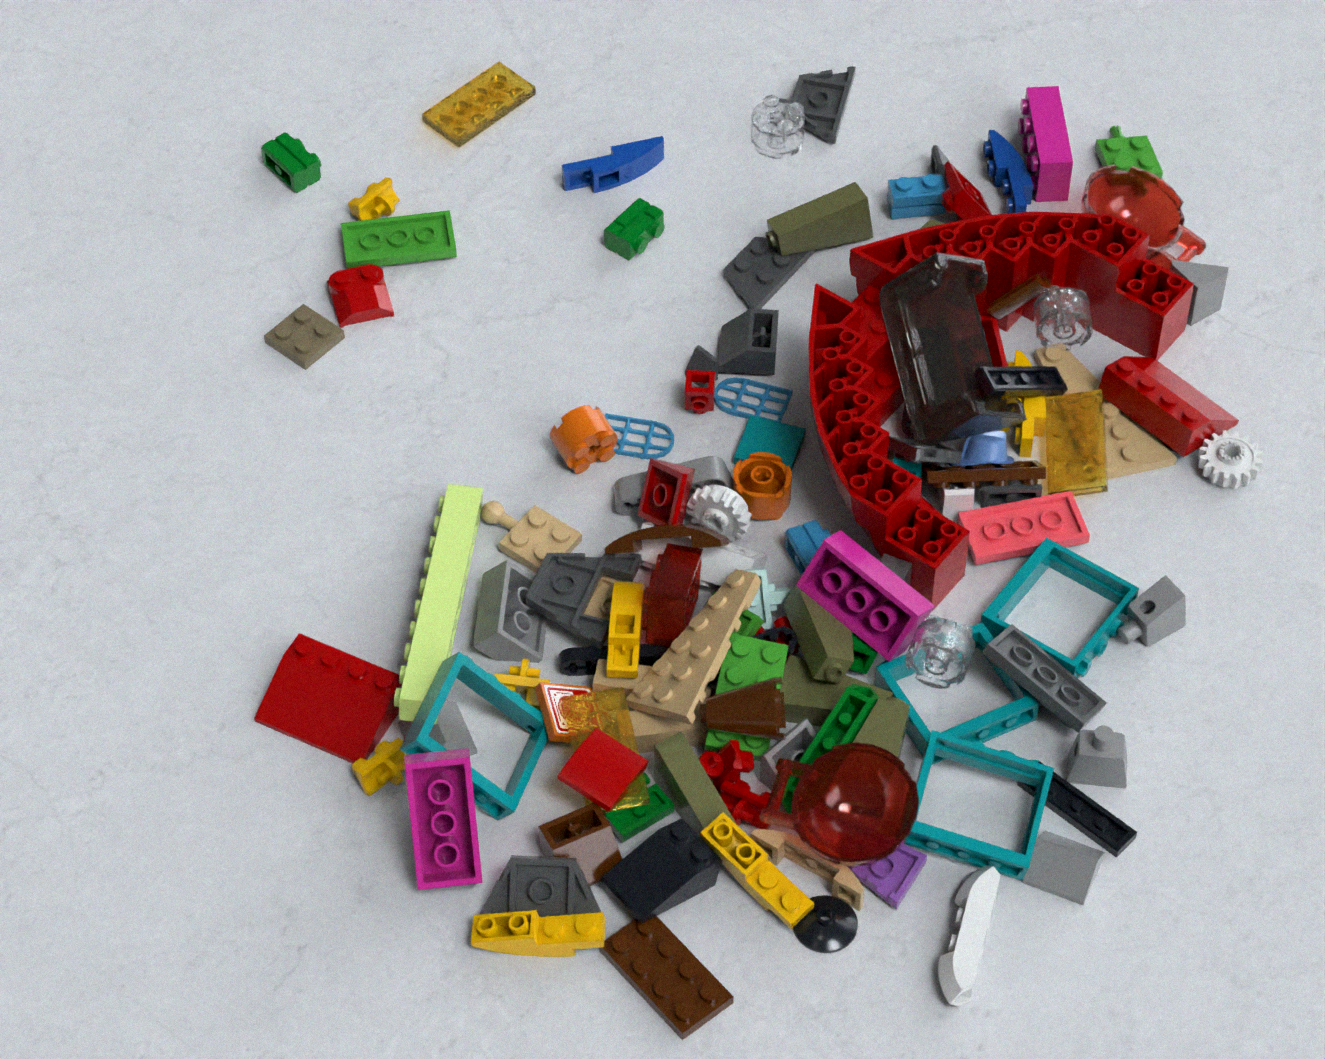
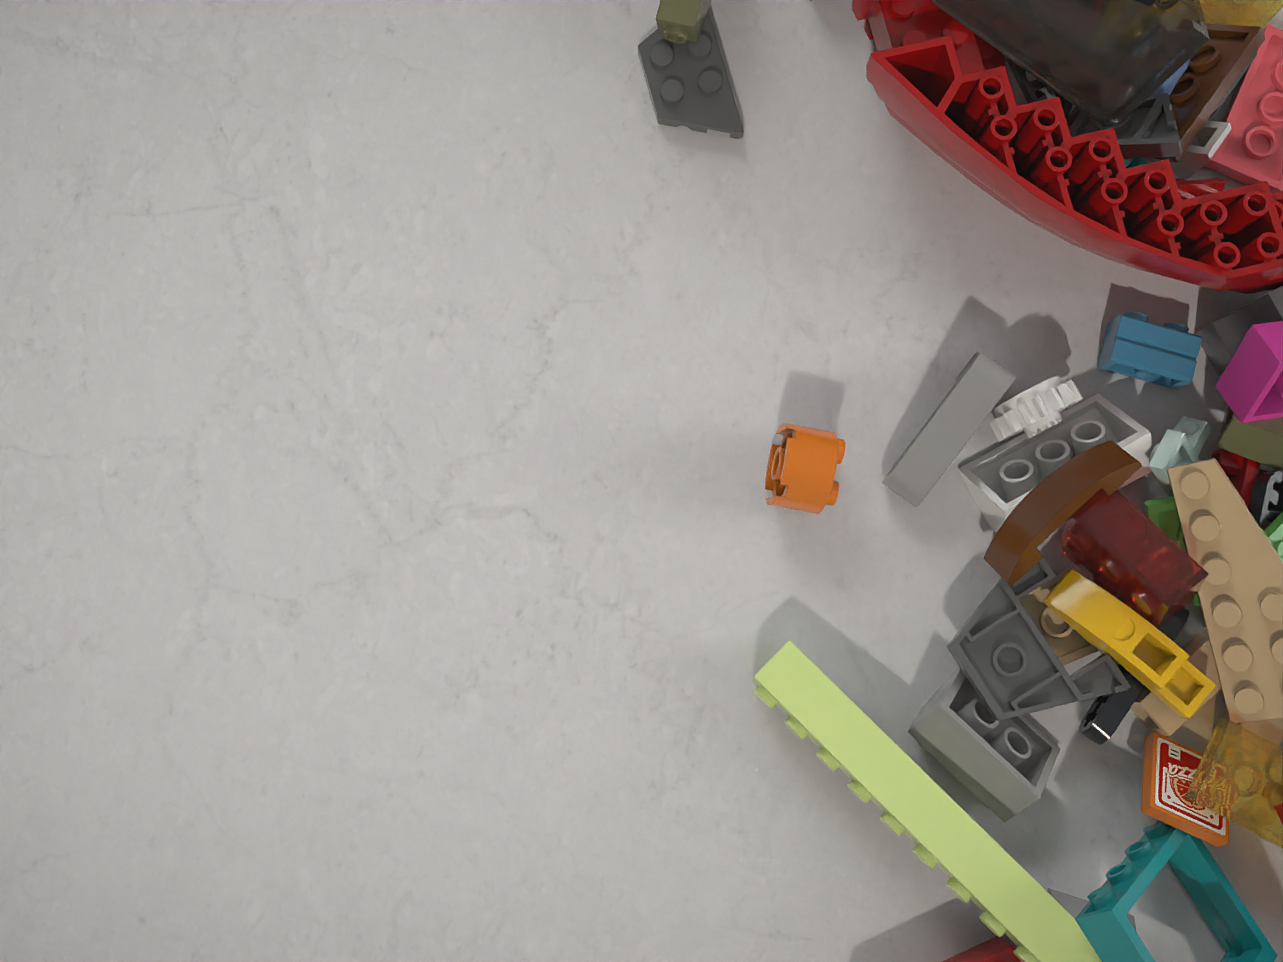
camera: 50 degrees left, 30 degrees up
(291, 162) = (69, 466): green brick -> none
(304, 336) = (363, 655): dark tan plate -> none
(359, 295) = (355, 545): red slope -> none
(376, 202) = (225, 416): yellow hips -> none
(399, 239) = (305, 436): bright green plate -> none
(478, 104) = (165, 180): clear yellow plate -> none
(523, 682) = (1093, 804): yellow hips -> none
(532, 535) = (888, 624): tan plate -> none
(610, 171) = (406, 99): blue slope -> none
(634, 229) = (518, 164): green brick -> none
(647, 445) = (825, 384): dark azure window -> none
(665, 492) = (987, 452): red slope -> none
(698, 398) = (833, 288): red brick -> none
(702, 361) = (786, 255): dark grey slope -> none
(750, 343) = (800, 177): dark grey slope -> none
(763, 397) = (871, 222): dark azure window -> none
(763, 485) = (1037, 314): orange brick -> none
(770, 437) = (950, 272): teal tile -> none

